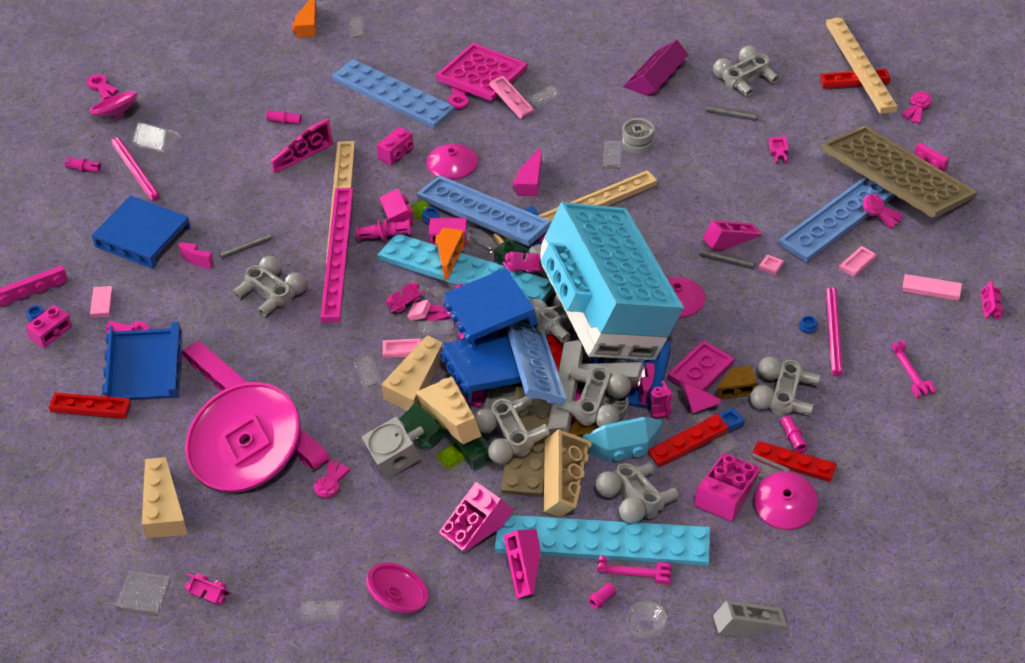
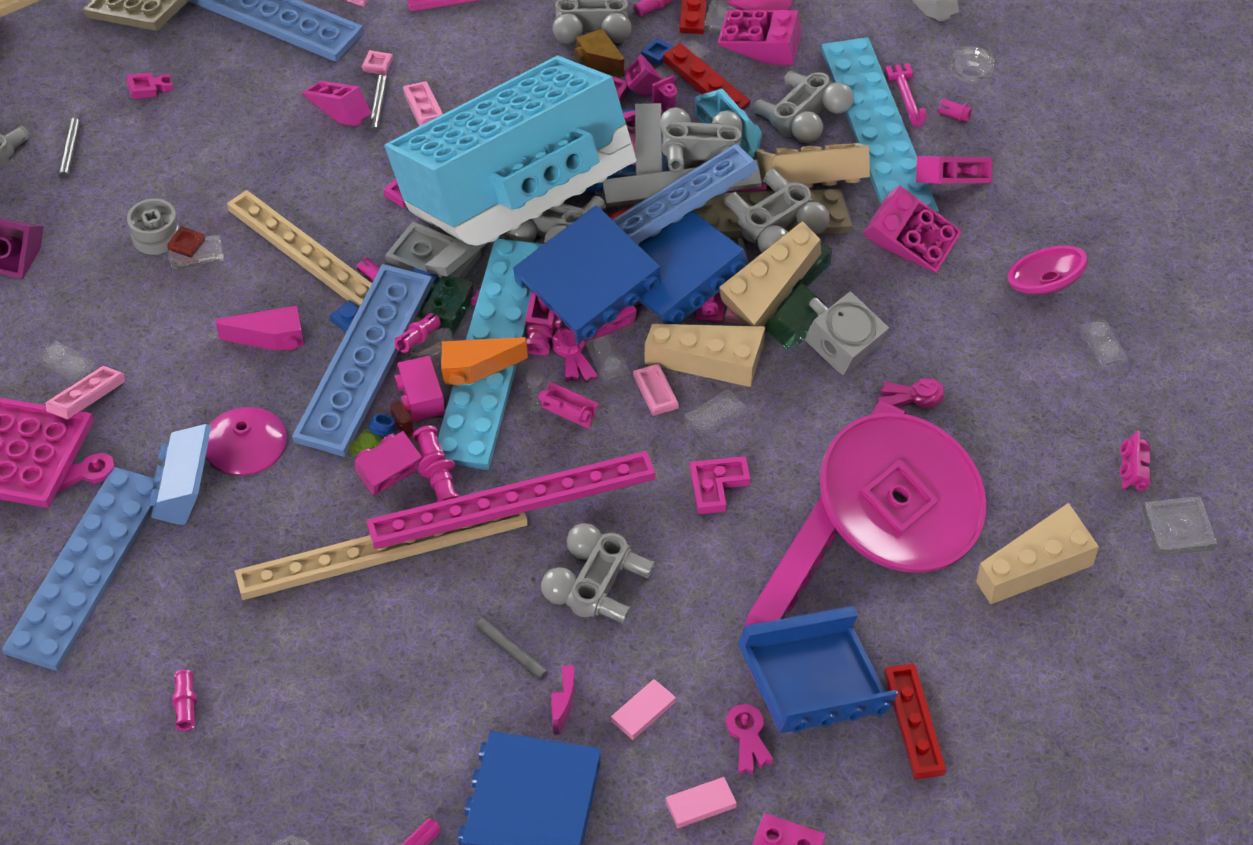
camera: 110 degrees left, 5 degrees up
(173, 291) = (643, 709): none -> bright pink tile
(305, 145) = (249, 632): dark pink wedge -> none
(312, 355) = (712, 476): none -> dark pink plate
(395, 146) = (236, 510): dark pink brick -> none
(419, 310) = (584, 383): bright pink tile -> none
(425, 221) = (402, 418): none -> clear red tile
(428, 124) = (179, 474): none -> slope
(449, 457) = (823, 287): clear neon green plate -> none
(488, 231) = (417, 333): none -> dark pink pin
(515, 262) = (479, 270): dark pink hinge -> none
(616, 146) = (186, 242): none -> clear red tile
(711, 276) = (422, 102): none -> bright pink tile
(808, 324) = (475, 14): blue plate -> none

